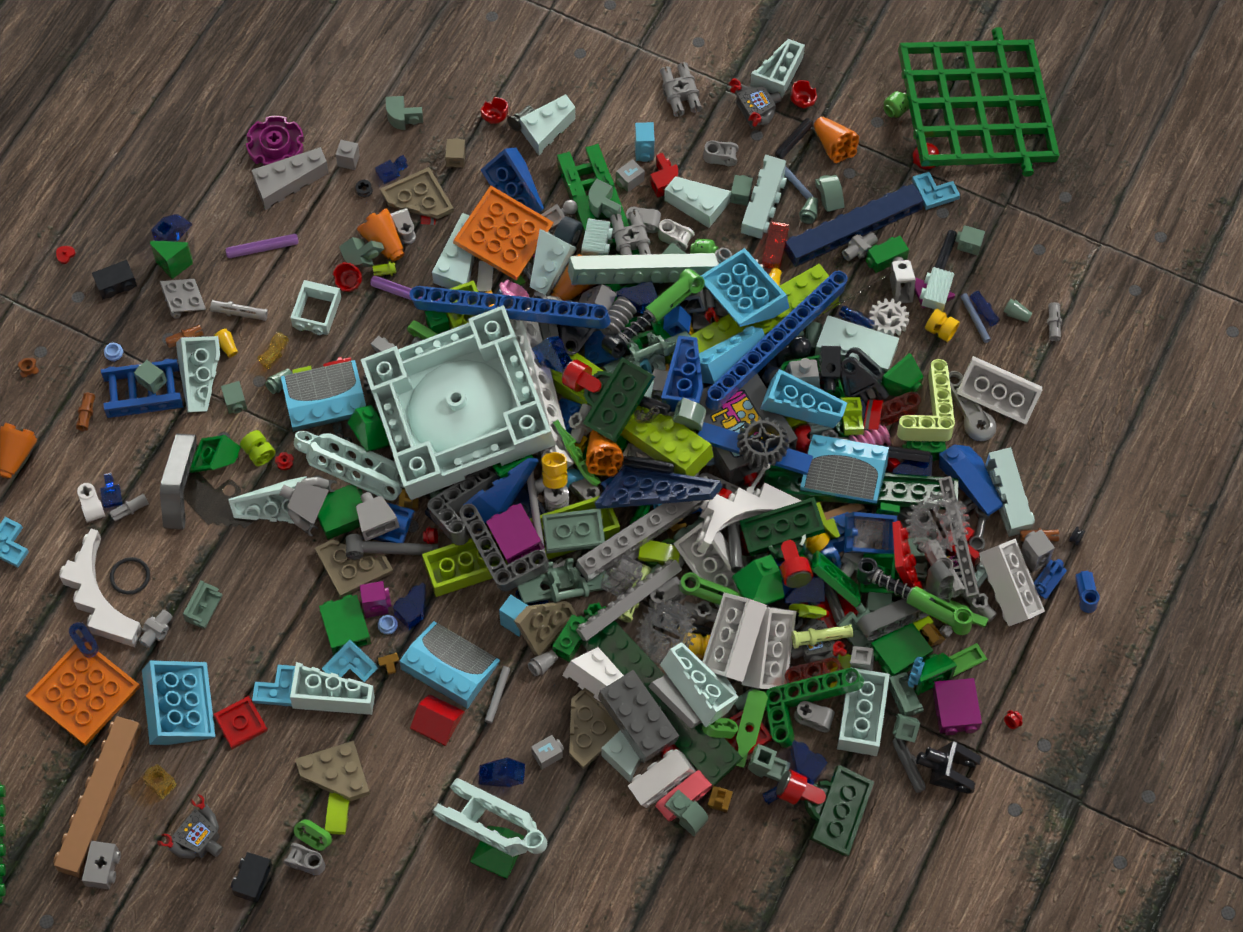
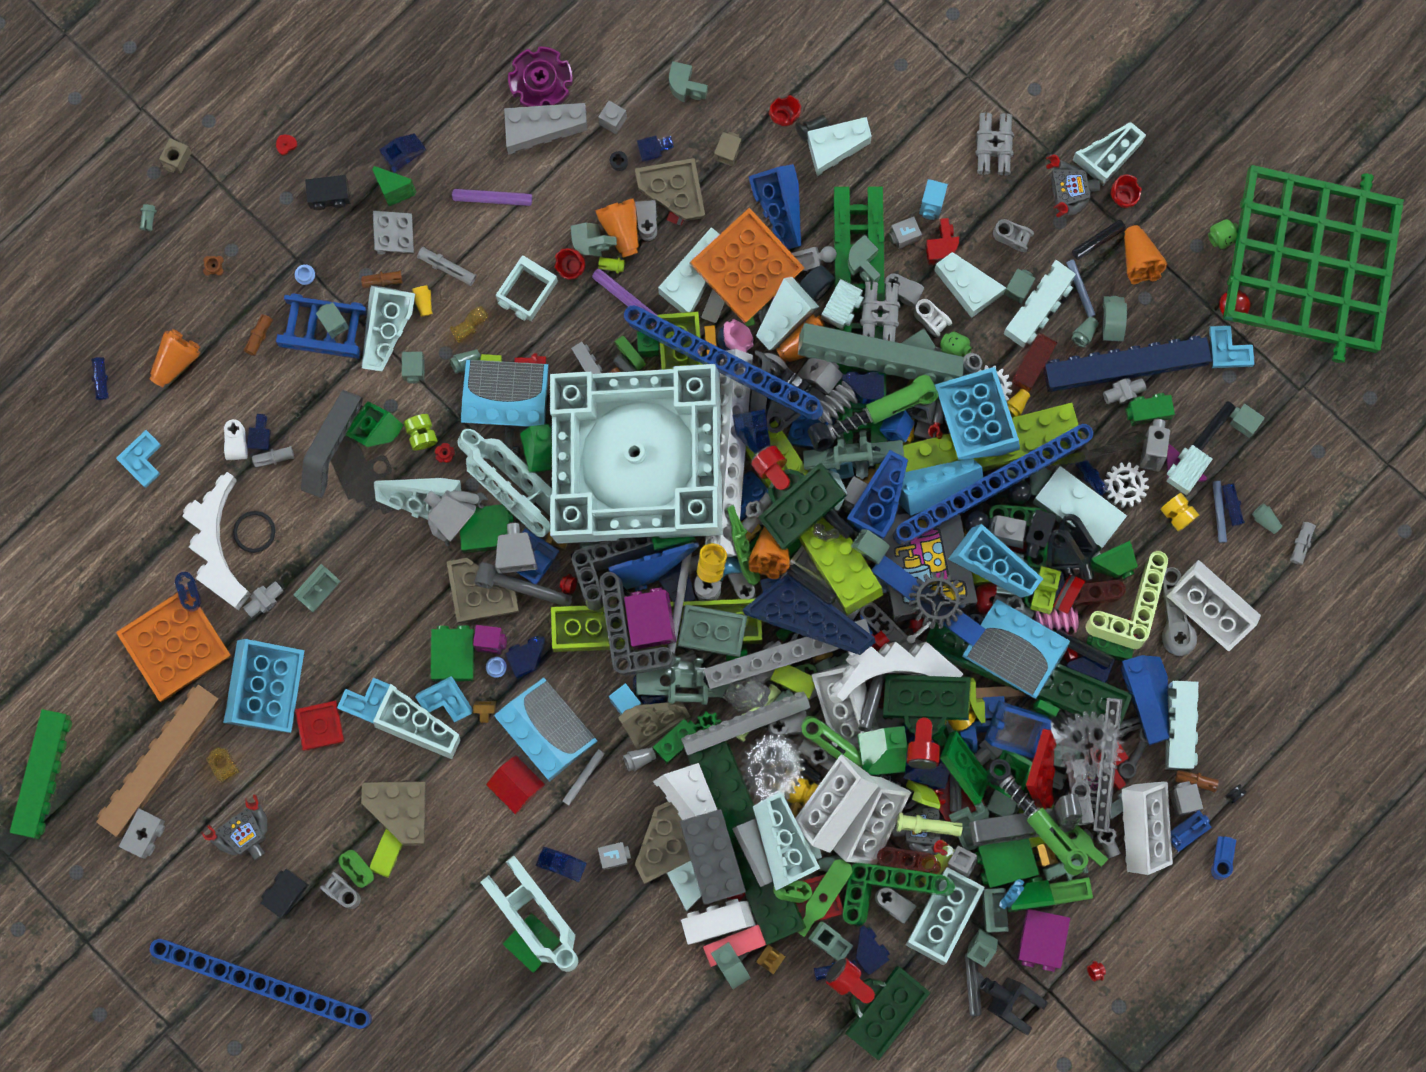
camera: 20 degrees right, 15 degrees up
(956, 642) = (1058, 870): none -> sand green connector

